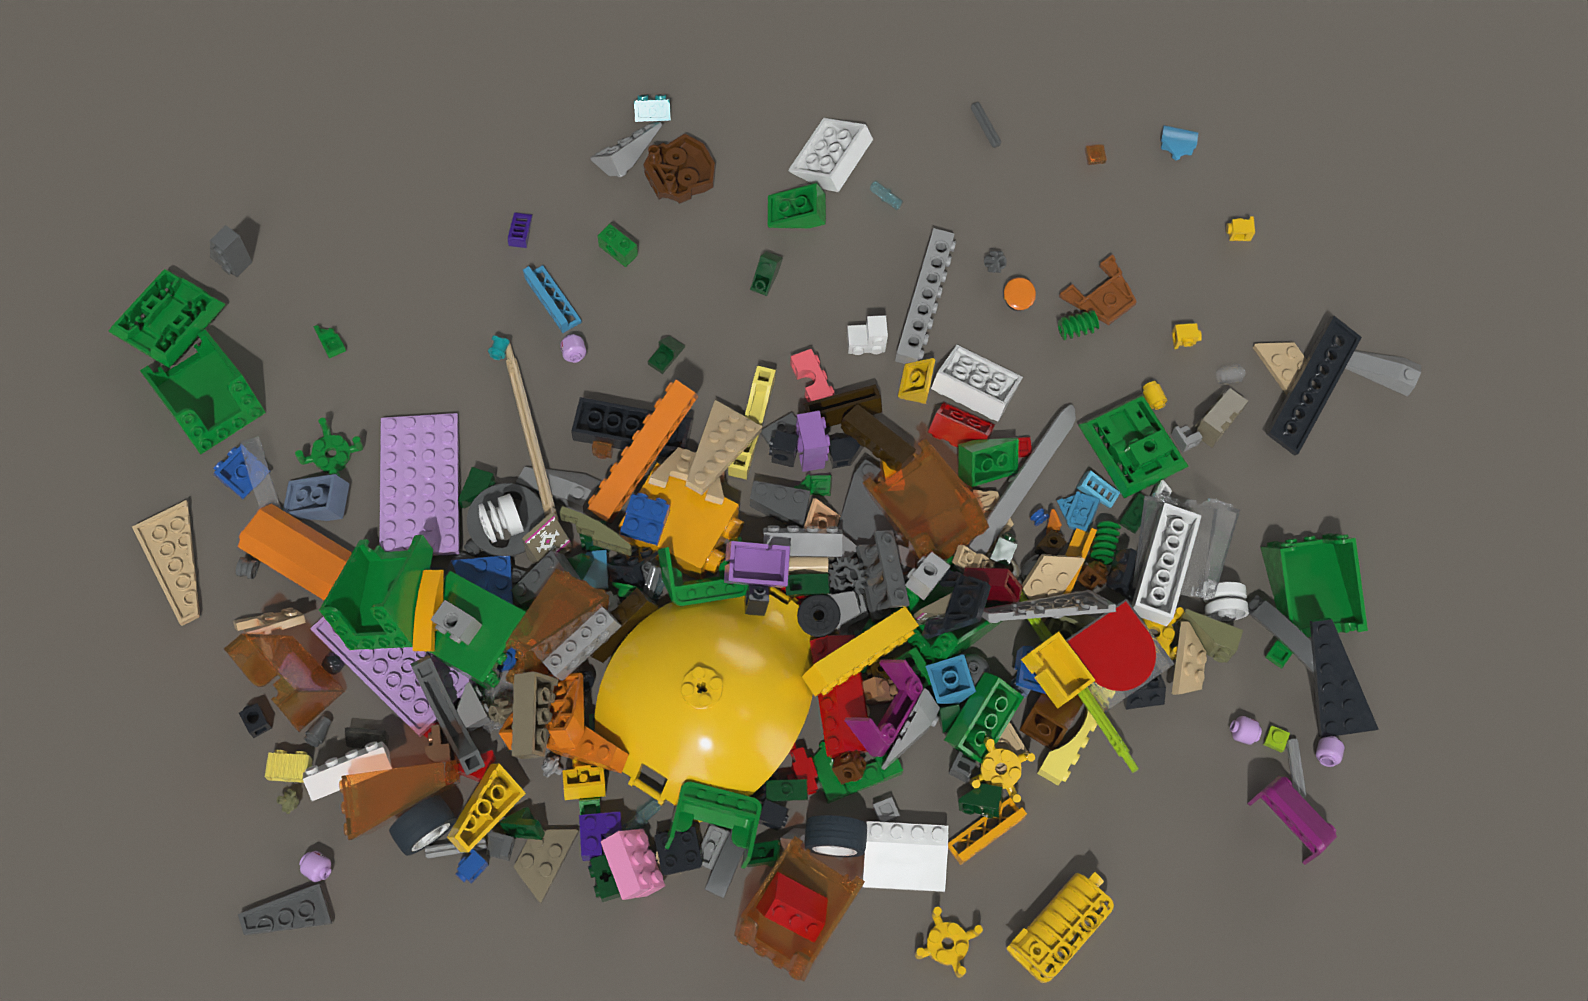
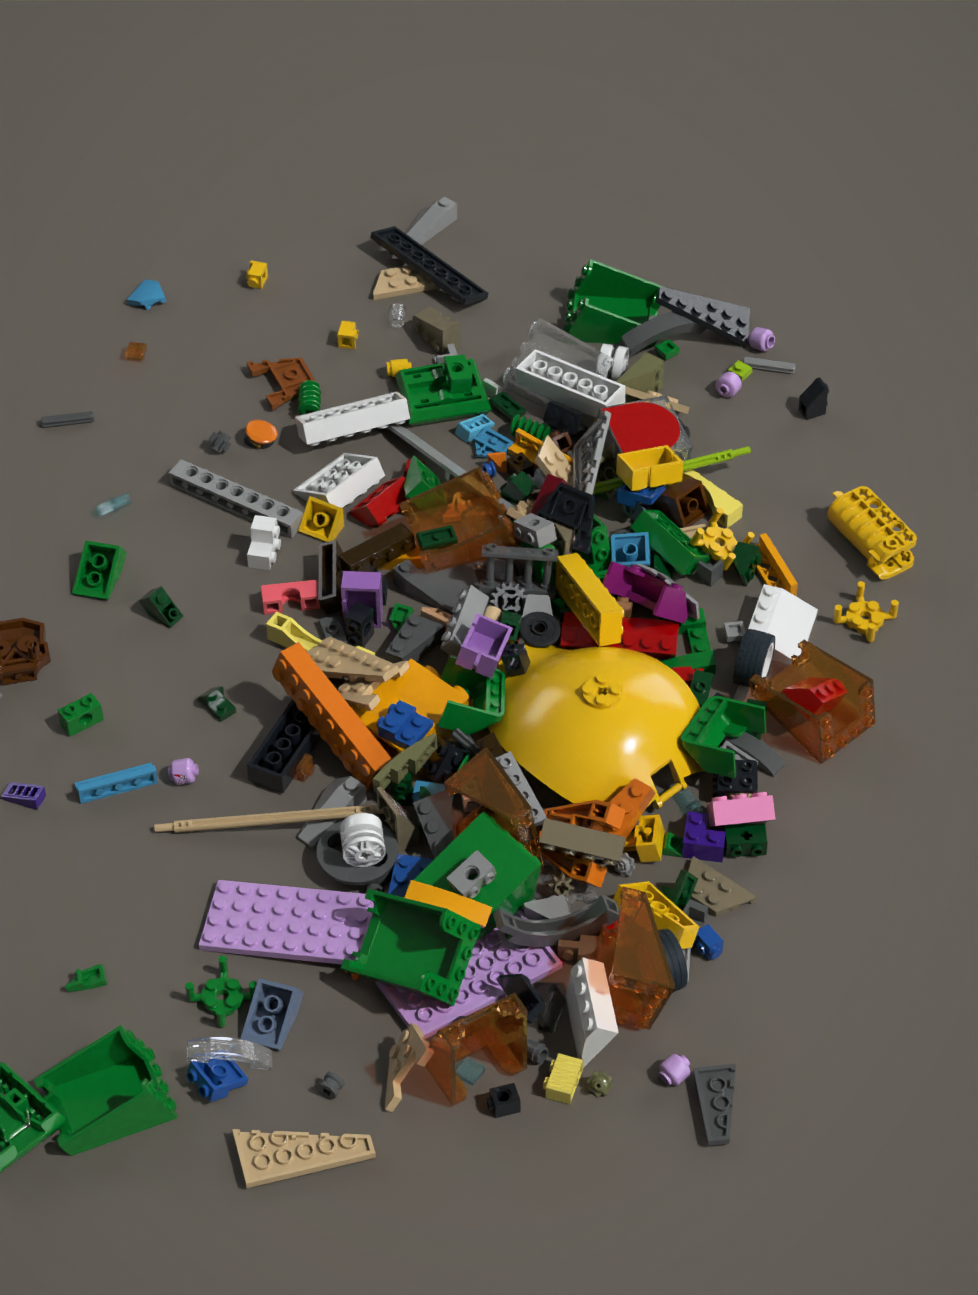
camera: 70 degrees left, 20 degrees down
(294, 549) = (332, 1032): orange panel -> none
(355, 709) = (526, 993): none -> black bracket
(476, 482) = (306, 873): dark green slope -> none
(498, 348) = (157, 832): teal brick -> none
(832, 153) = (47, 533): white slope -> none
(849, 767) = (691, 638): reddish brown brick -> none
(904, 487) = (437, 538): none -> dark green plate
(1060, 369) = (352, 418): none -> white brick
(1248, 827) = (814, 399): none -> black slope
(1297, 815) = (838, 353): magenta windscreen -> none

